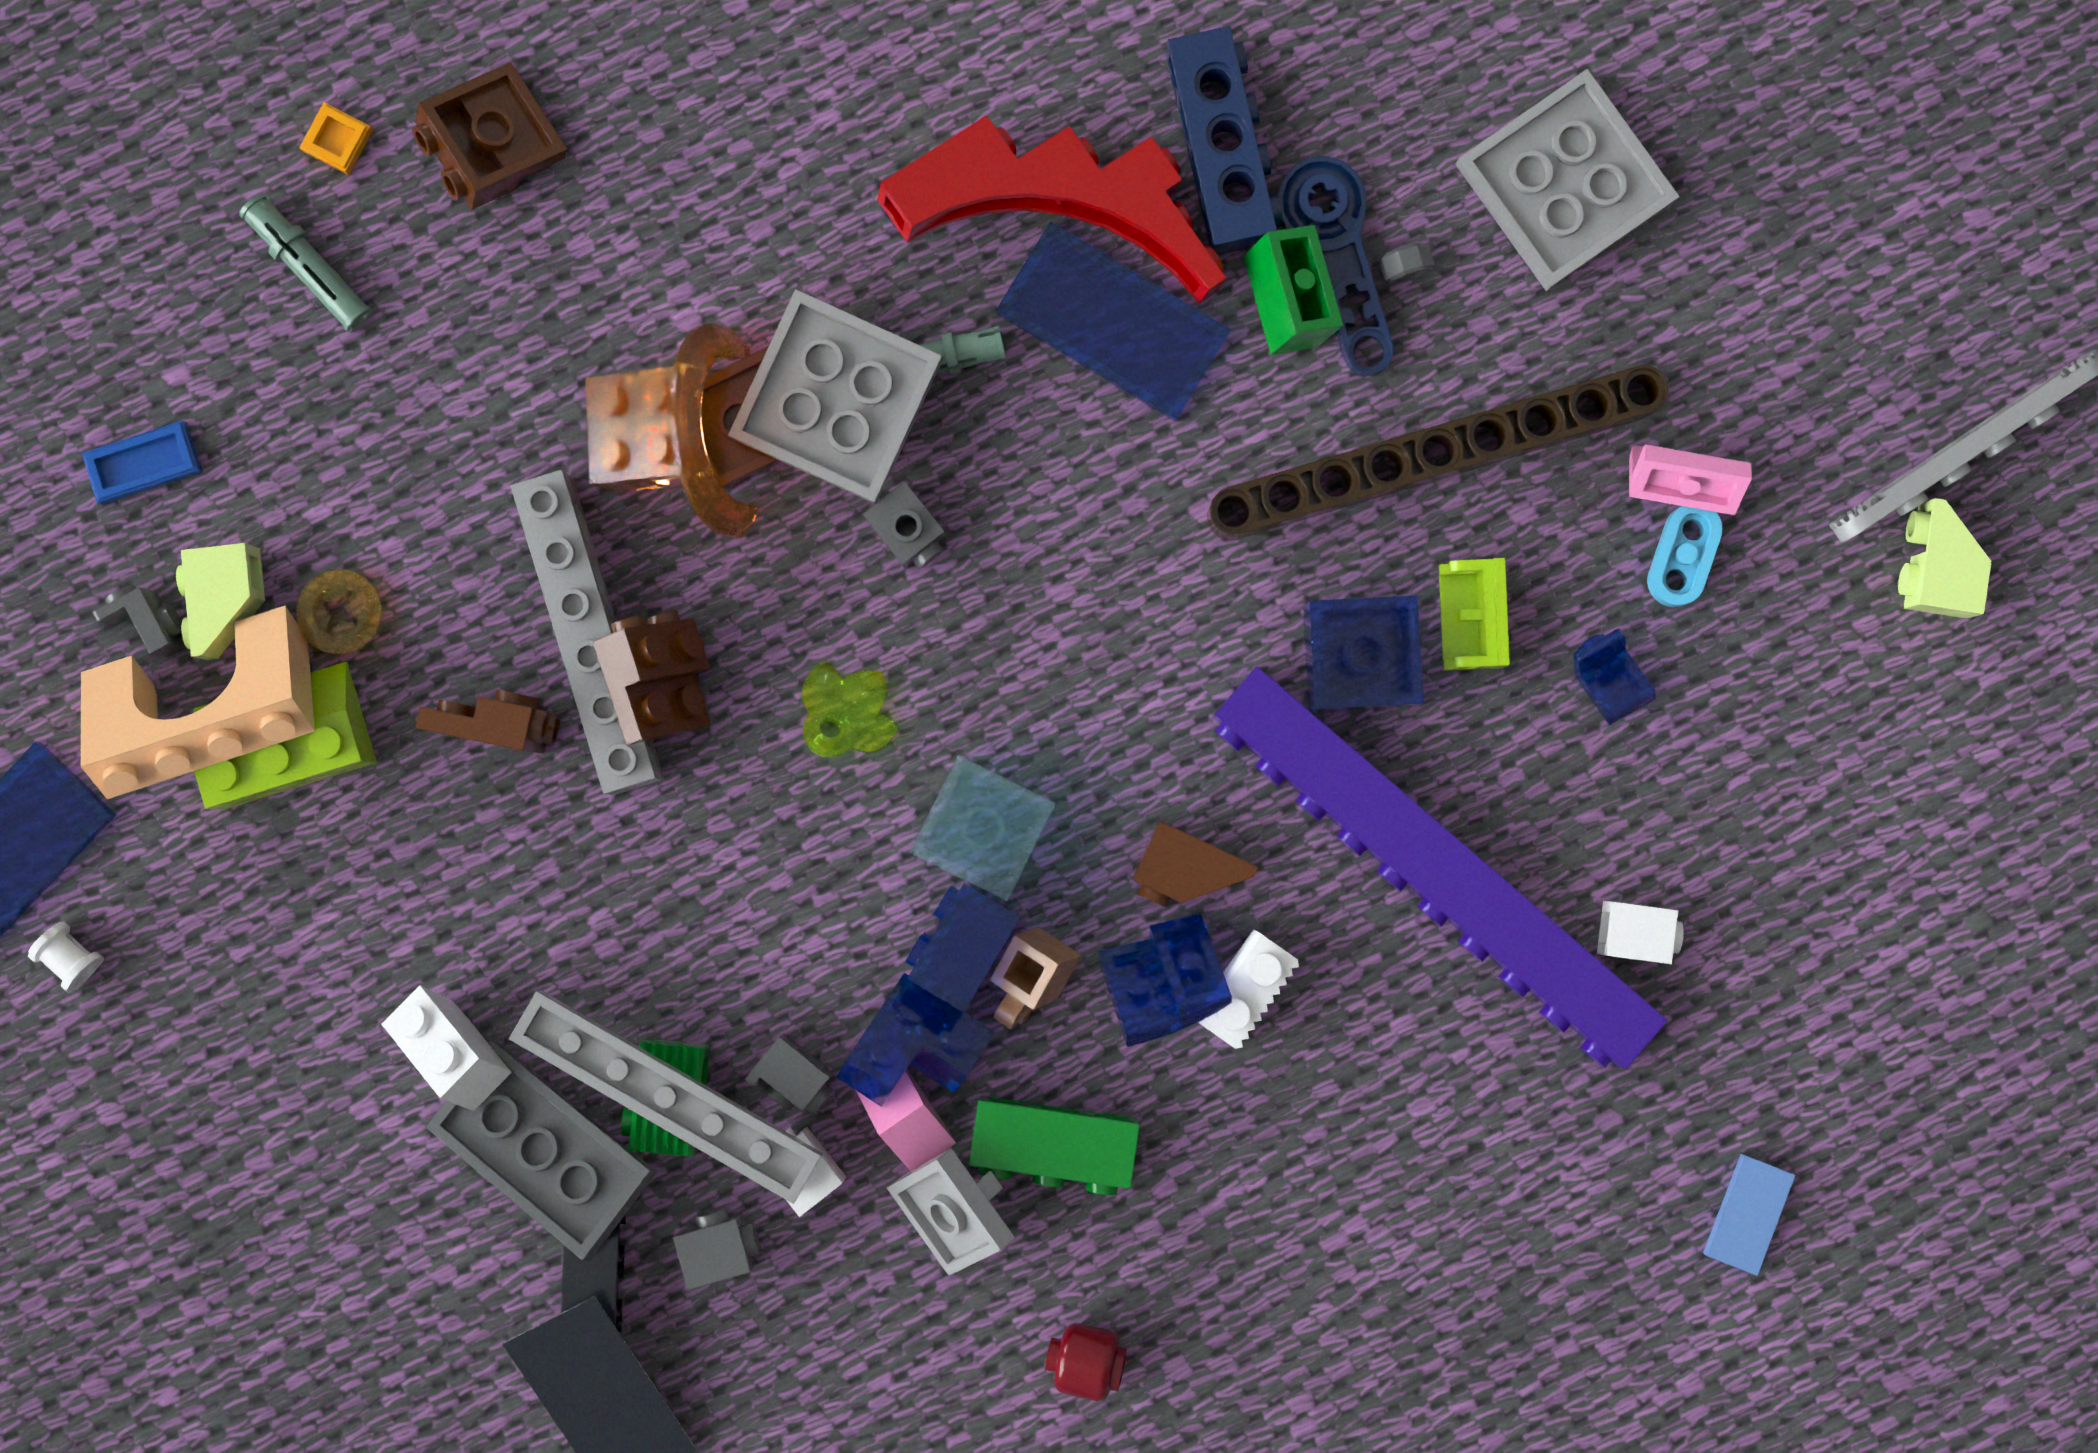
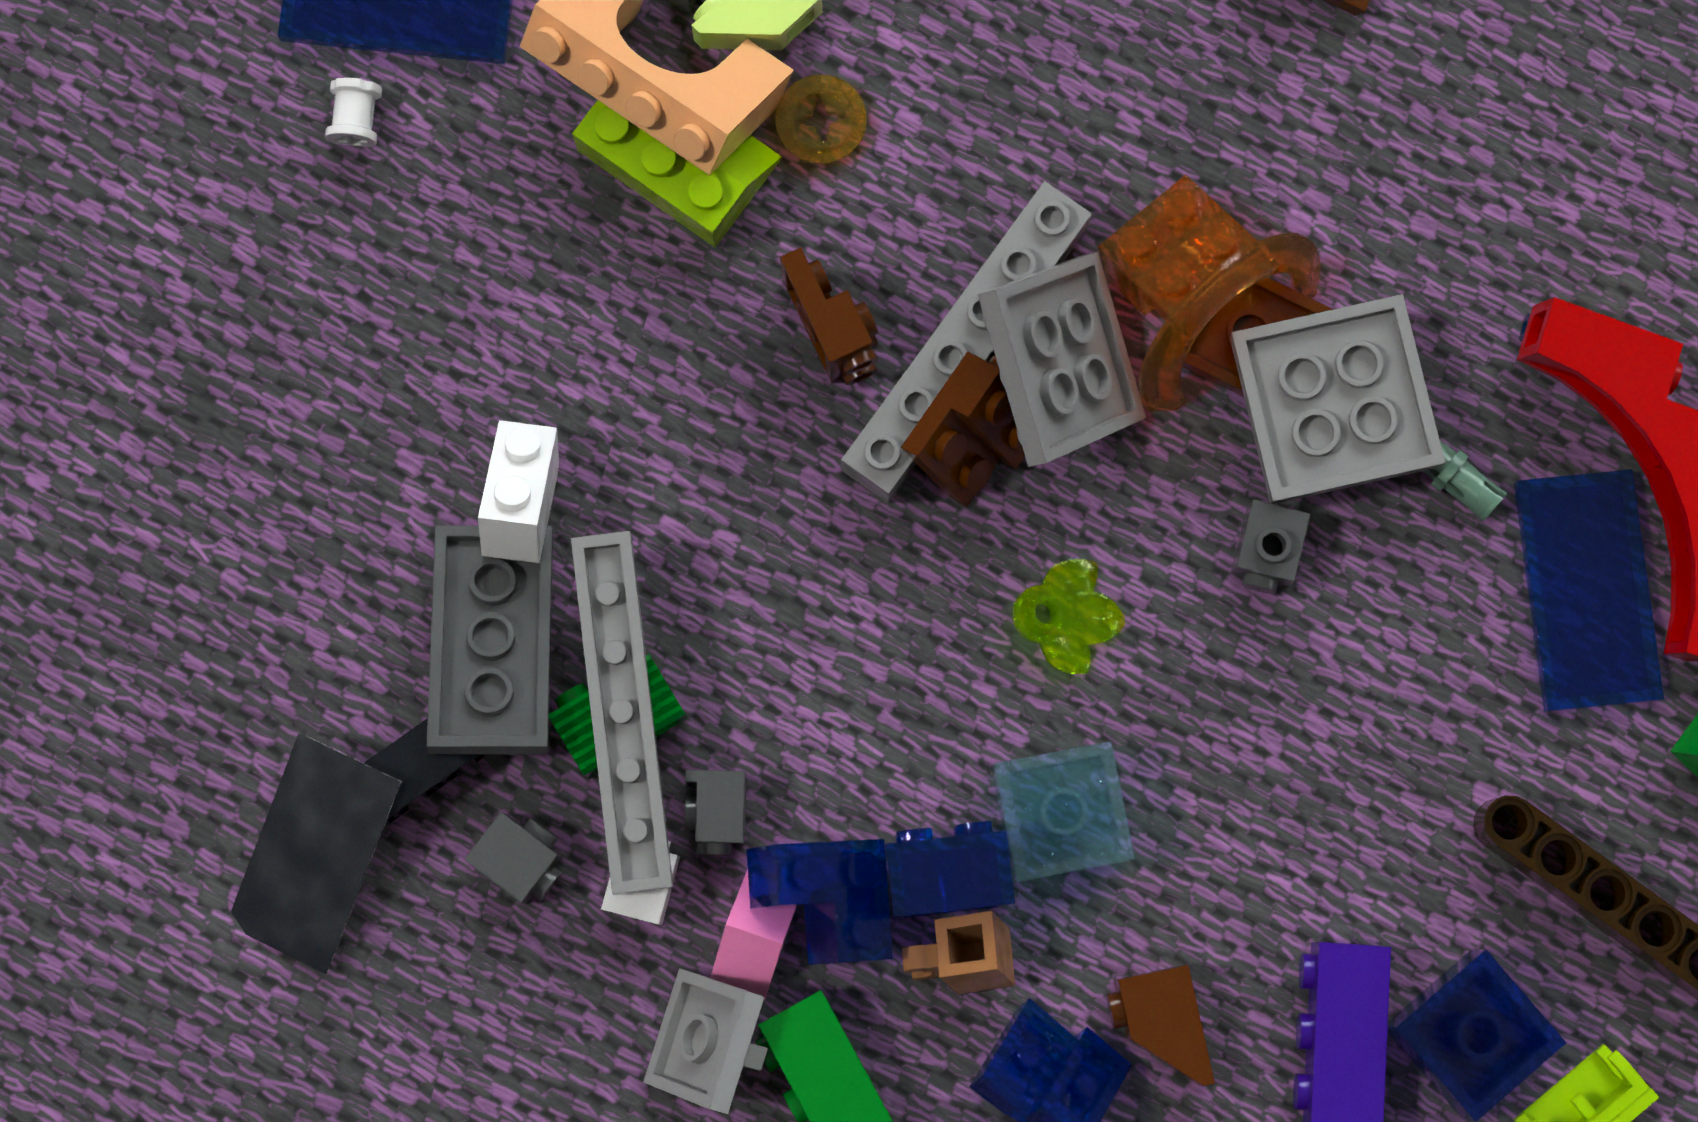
camera: 50 degrees right, 5 degrees down
(650, 575) = (1062, 358): none -> light grey plate

